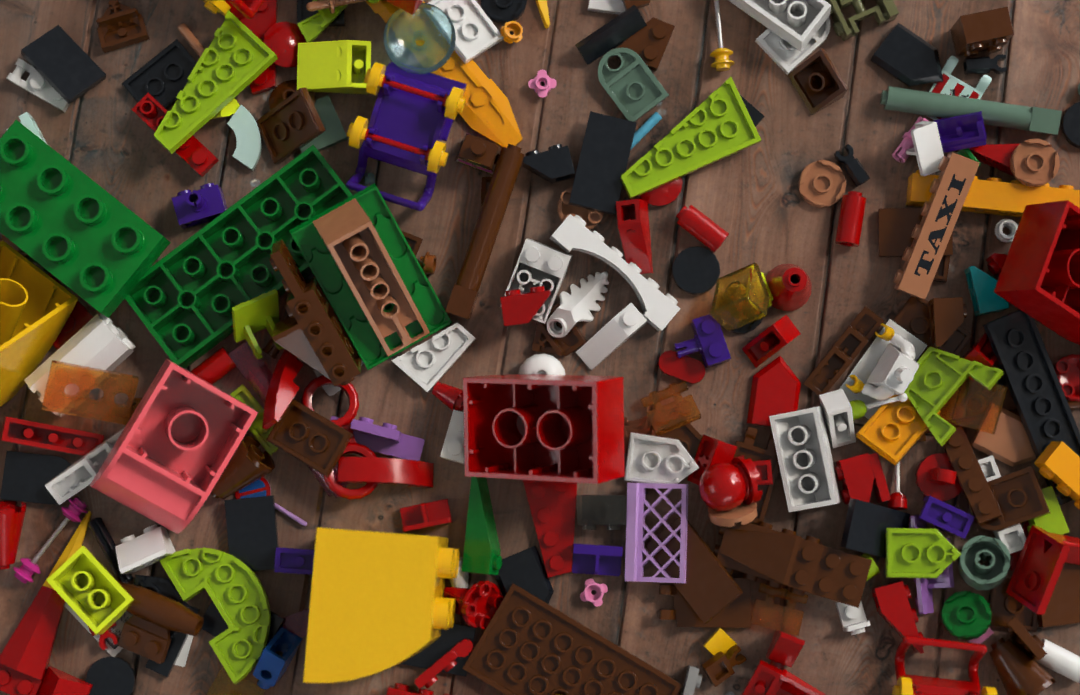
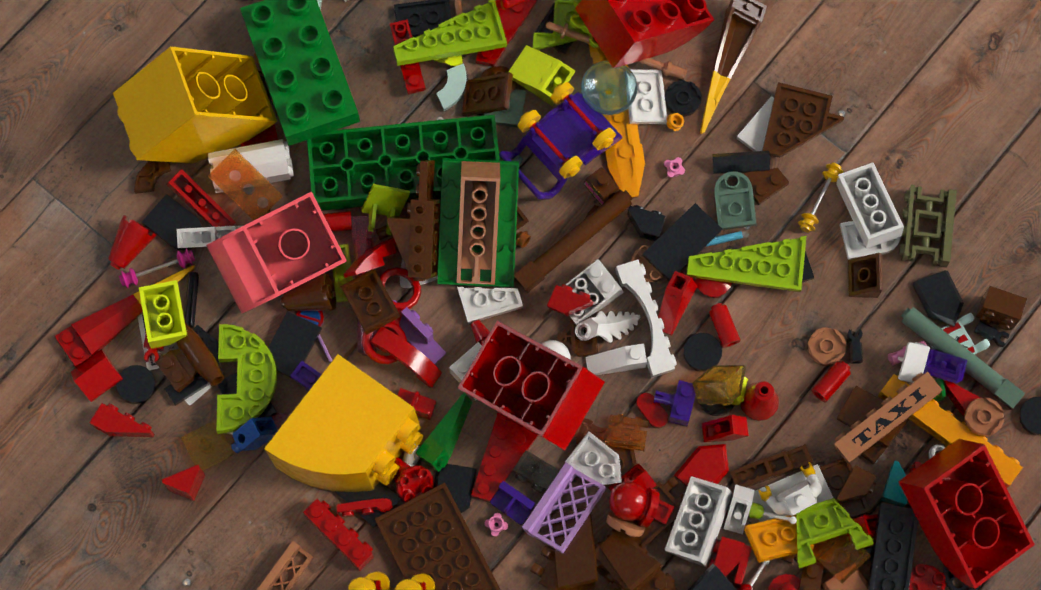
camera: 30 degrees right, 10 degrees down
(143, 550) = (213, 311): white slope -> none
(199, 206) = (393, 111): dark purple brick -> none
(283, 41) = (517, 38): red dish -> none

